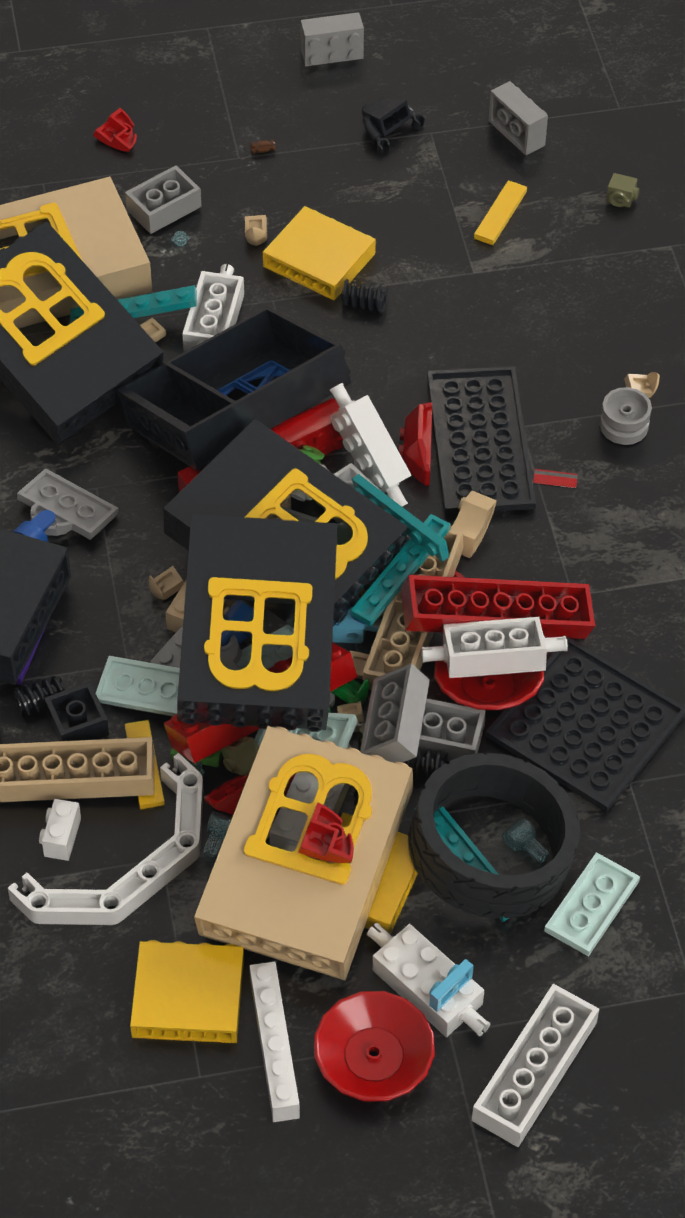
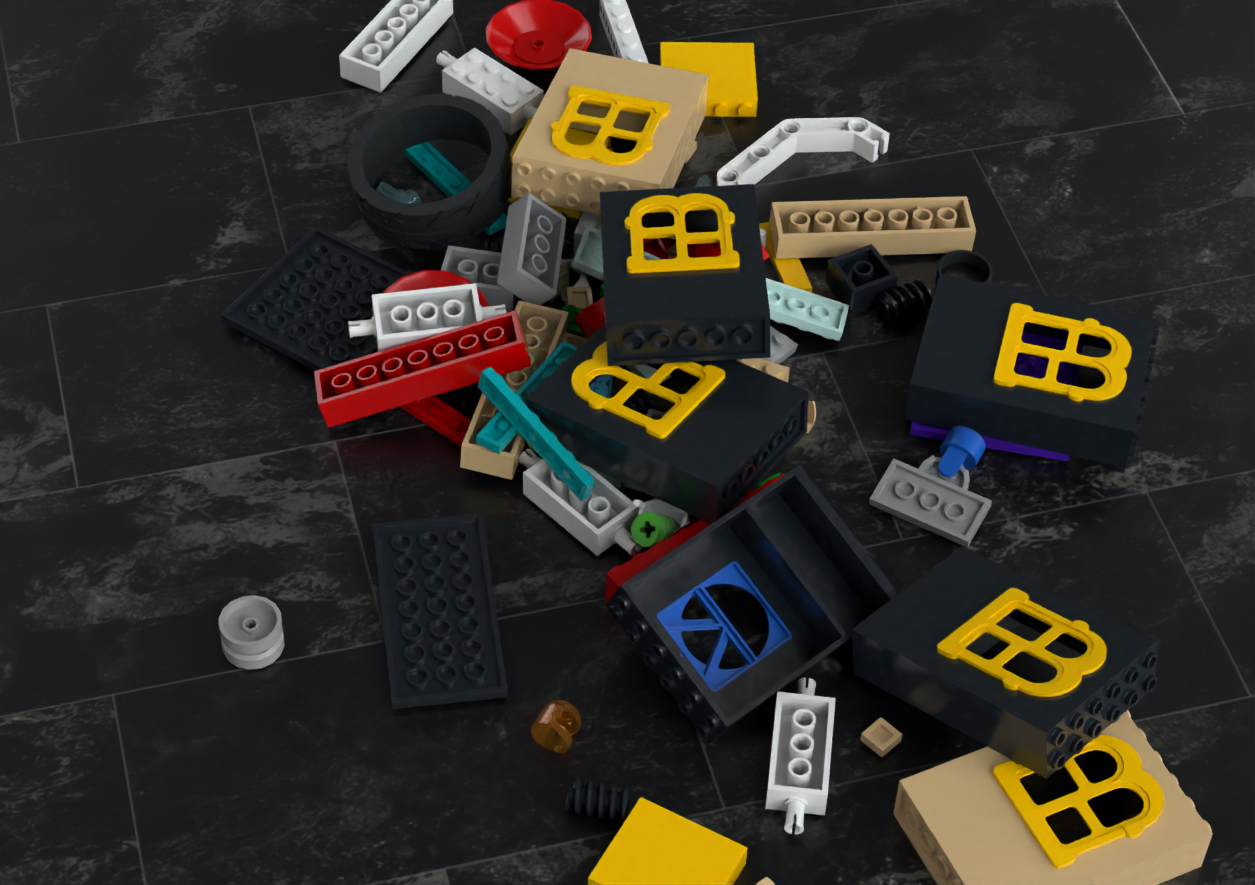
camera: 175 degrees right, 5 degrees down
(61, 829) = (854, 181): white brick -> none
(153, 303) = (894, 749): teal plate -> none
(326, 837) = (591, 105): red brick -> none
(369, 443) = (577, 539): white brick -> none
(391, 347) = (556, 717): none -> clear orange helmet
(417, 442) = (517, 595): red wedge -> none
(455, 980) = (471, 53): medium azure plate -> none
(473, 520) = (452, 490): tan brick -> none
(555, 478) = (346, 574): red sticker -> none
(592, 904) = (326, 163): light aqua plate -> none
(645, 383) = (224, 687): tan plate -> none

